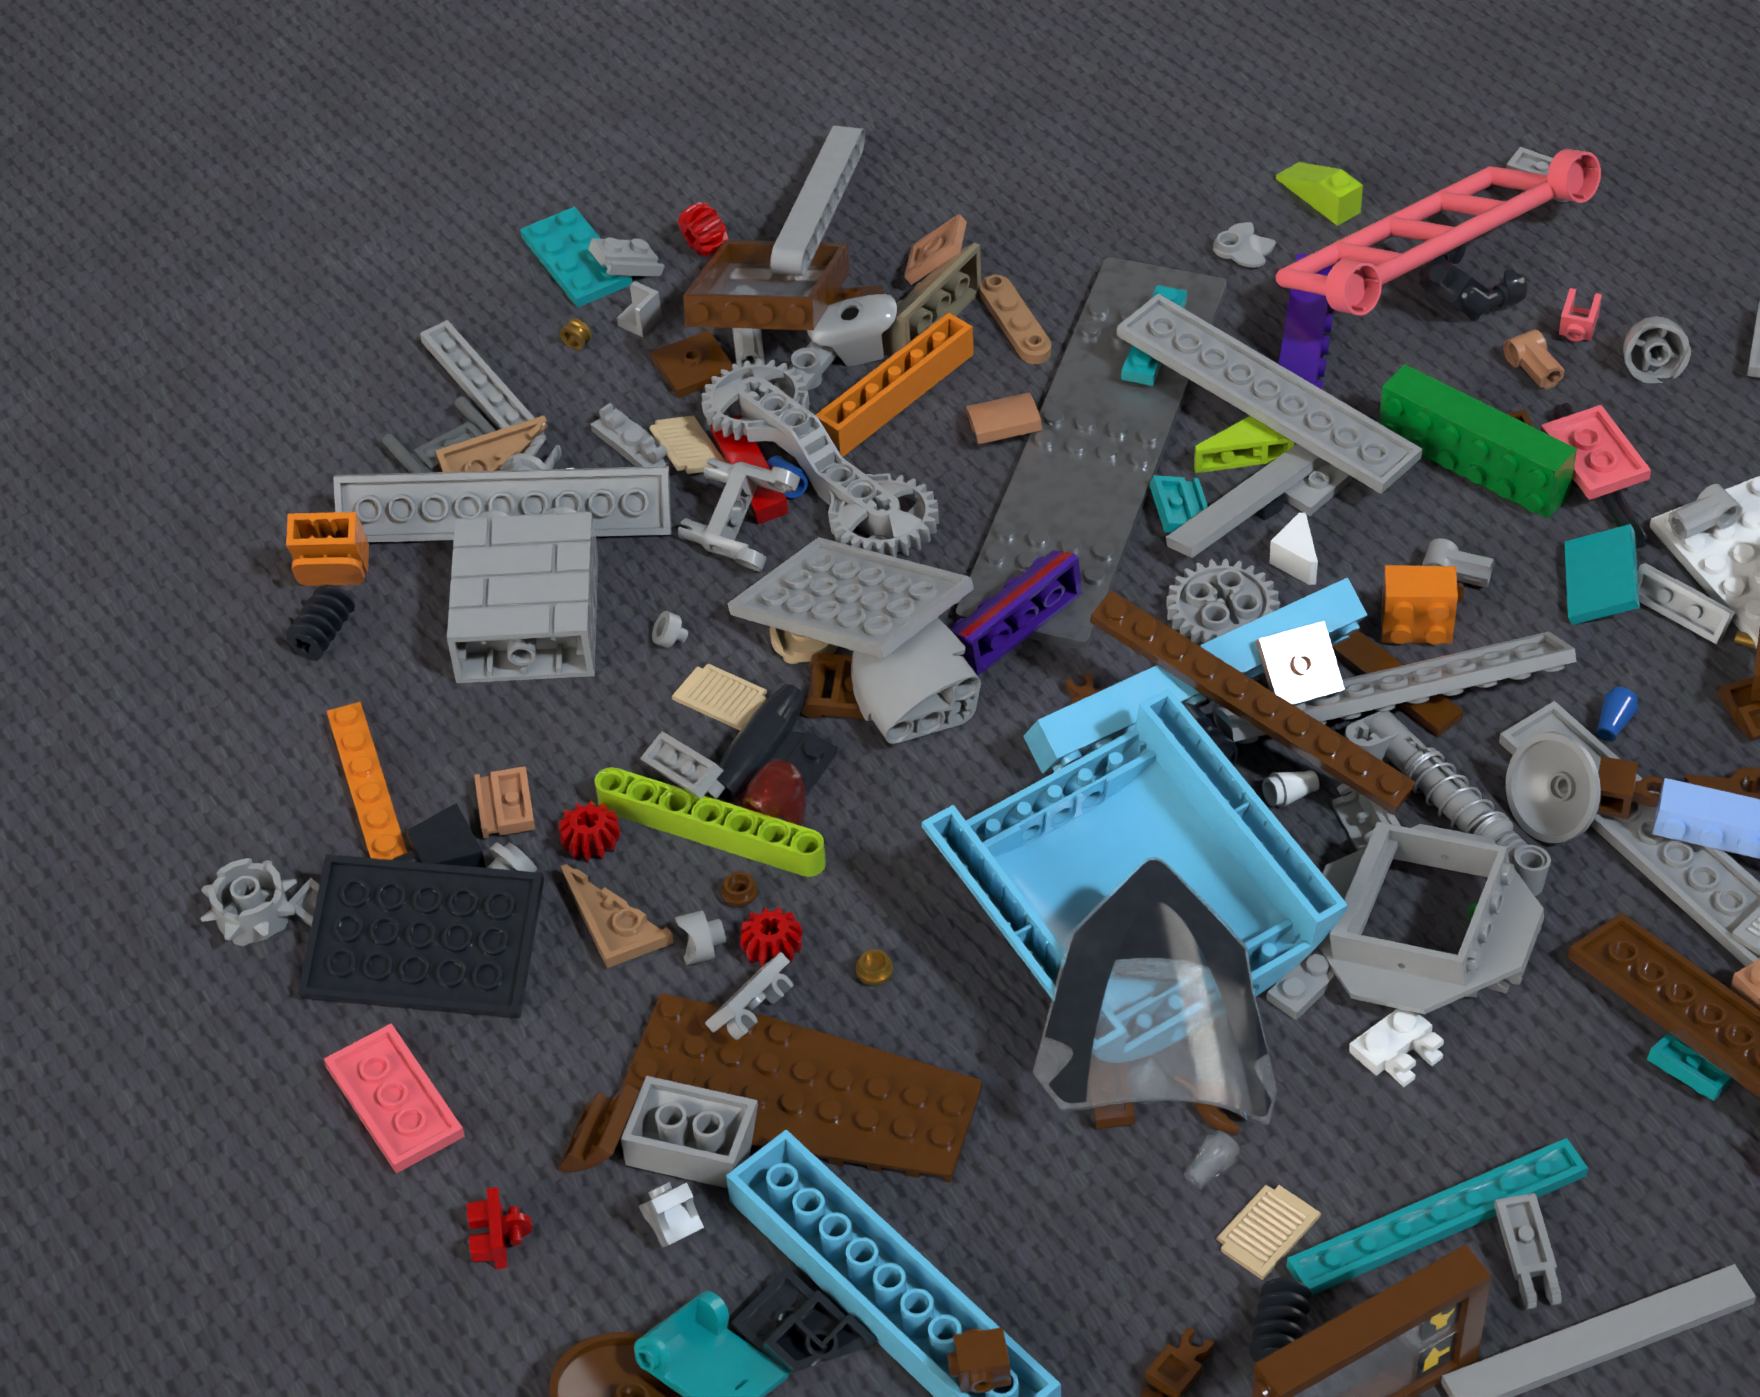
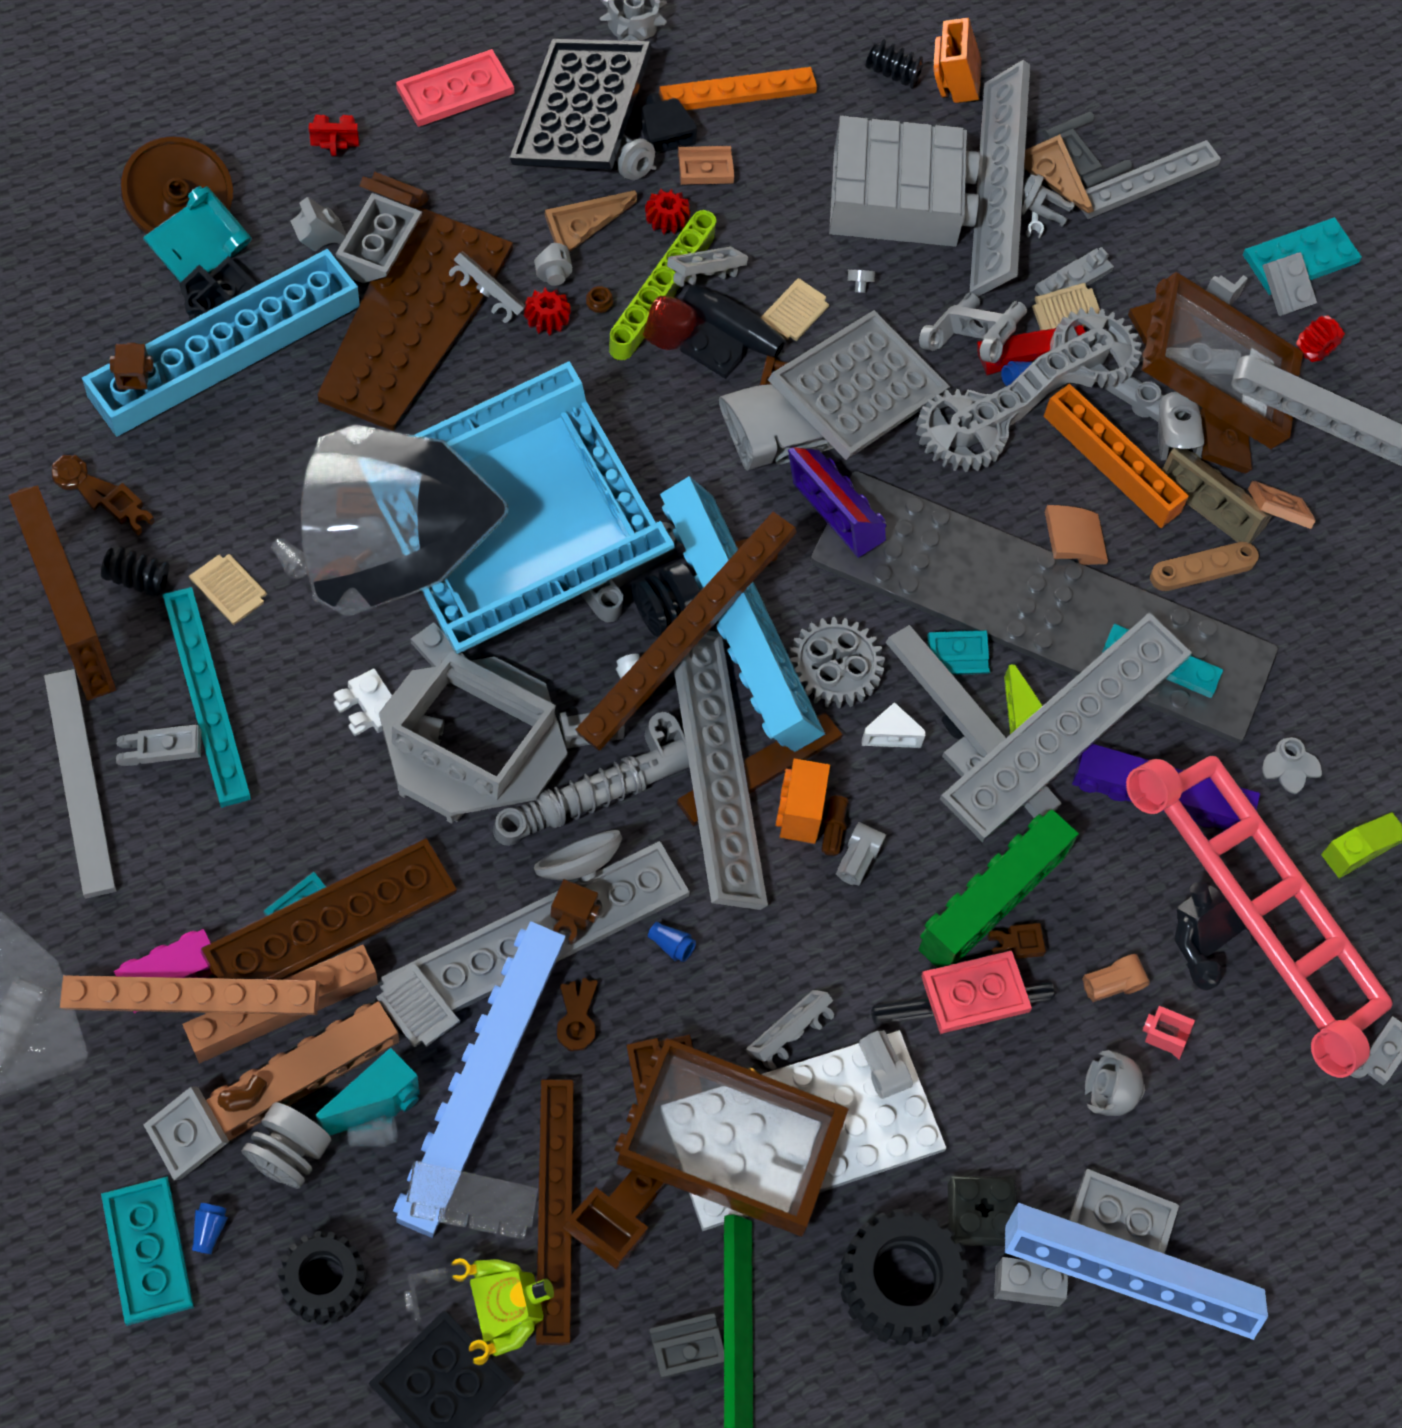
camera: 85 degrees right, 15 degrees up
(575, 334) = (1201, 244): pearl gold bush -> none
(874, 967) = (510, 374): pearl gold plate -> none
(1300, 663) = (728, 679): plate -> none
(1601, 574) = (831, 966): teal tile -> none

